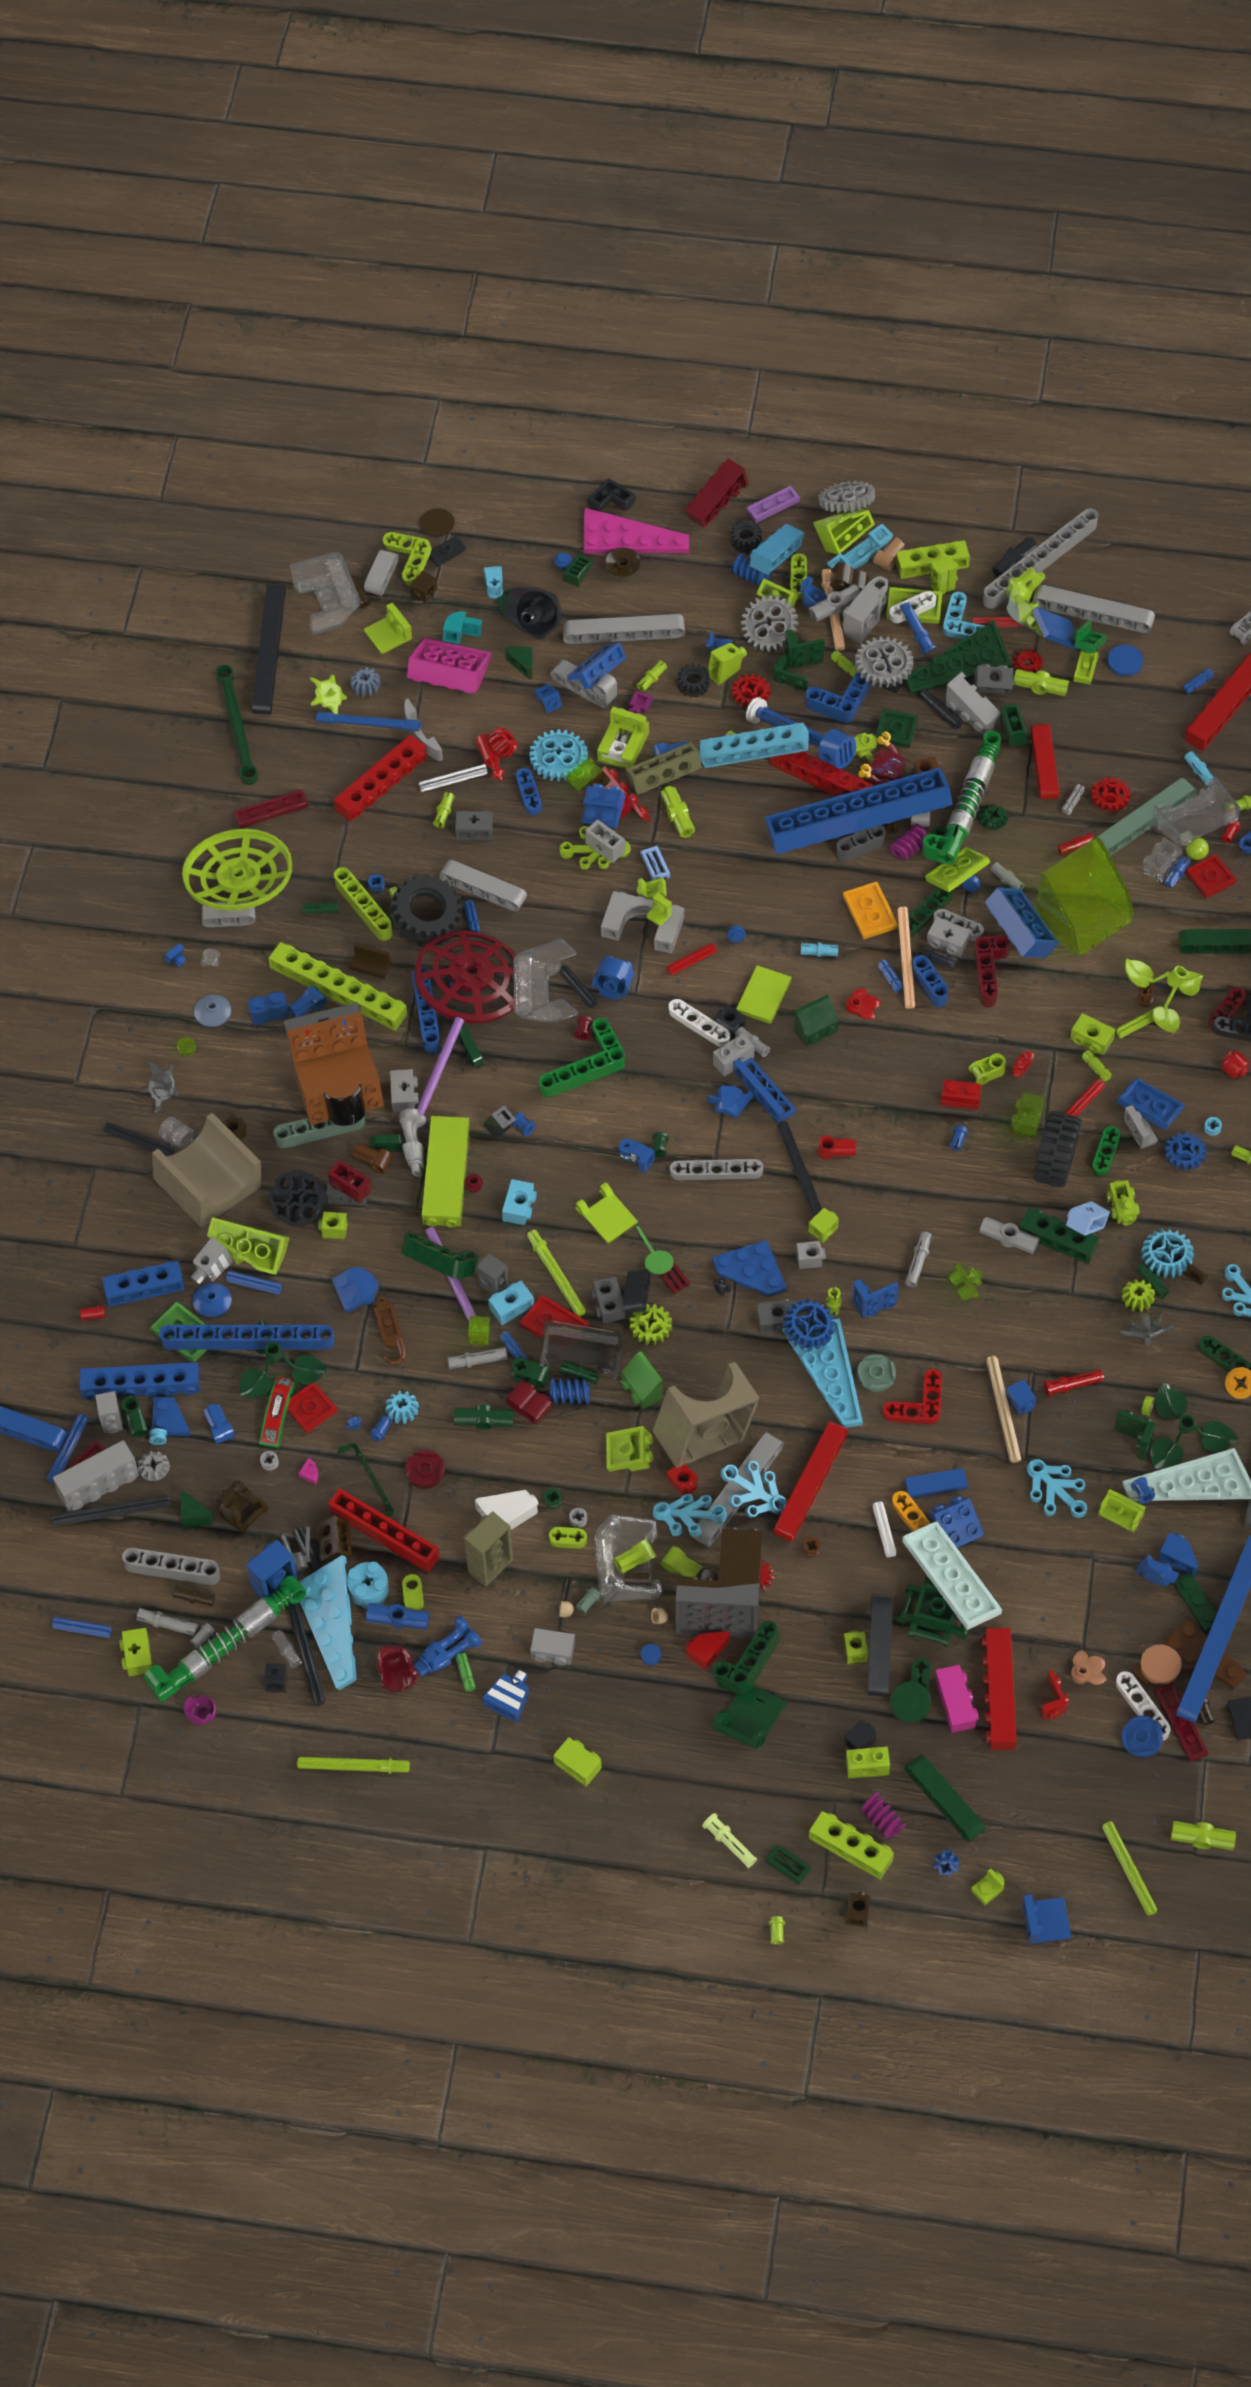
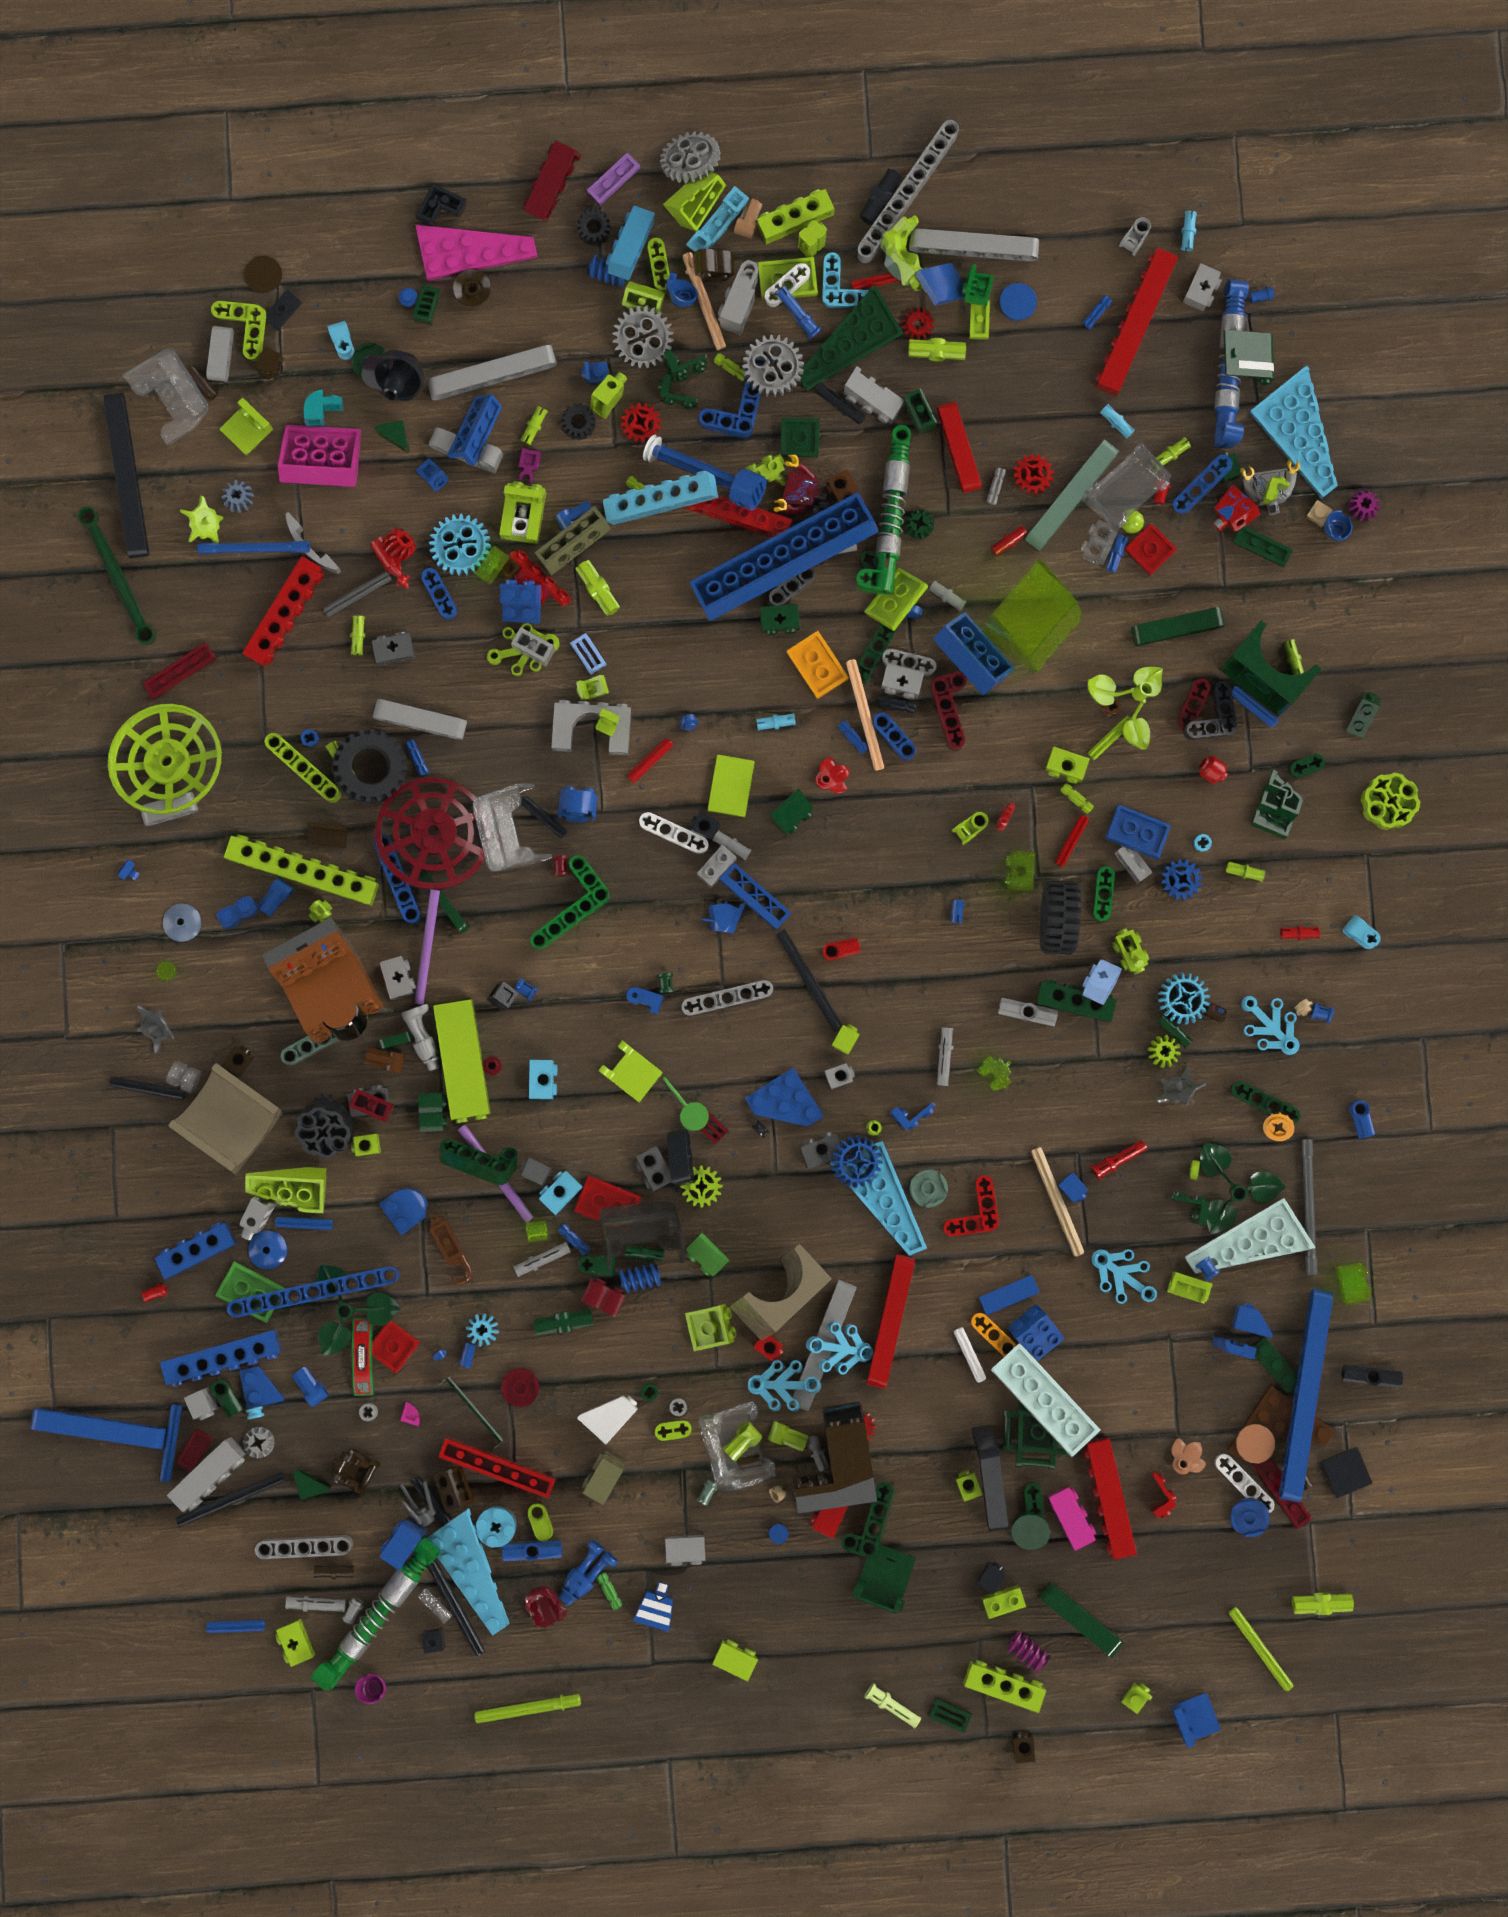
camera: 20 degrees left, 25 degrees up
(210, 953) = (159, 859): clear plate -> none
(320, 908) = (261, 781): dark green axle -> none
(404, 1209) = (431, 1112): none -> dark green brick
(540, 1247) = (596, 1148): lime axle -> none
(565, 1609) = (688, 1506): tan hinge -> none
(776, 1924) = (952, 1778): lime pin -> none
(811, 1540) = (899, 1391): reddish brown bush -> none
(834, 603) = (714, 290): light grey piece -> none
(843, 866) = (788, 614): none -> dark green brick
(908, 843) = (841, 577): magenta piece -> none
(946, 1862) = (1094, 1685): blue gear -> none
(961, 1094) = (950, 863): red brick -> none
(985, 684) = (899, 361): dark grey brick -> none

